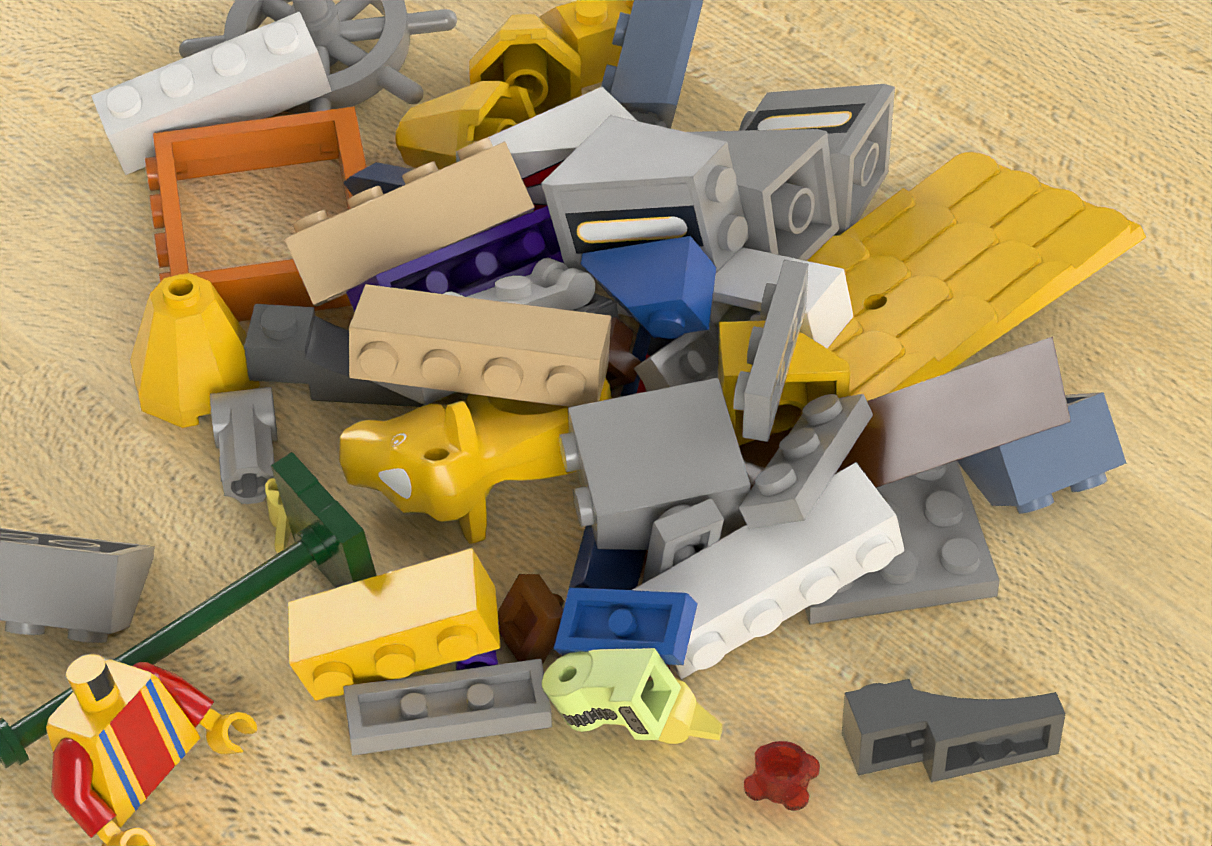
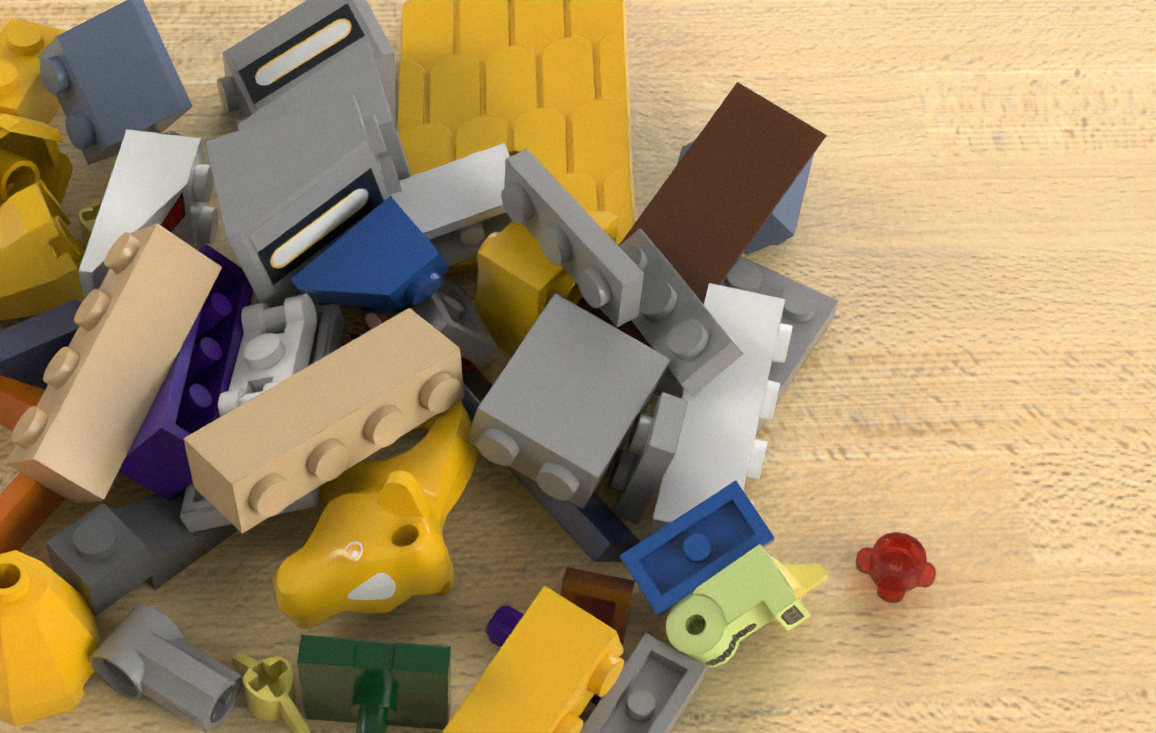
camera: 55 degrees left, 5 degrees up
(950, 735) = (946, 442): dark grey slope -> none

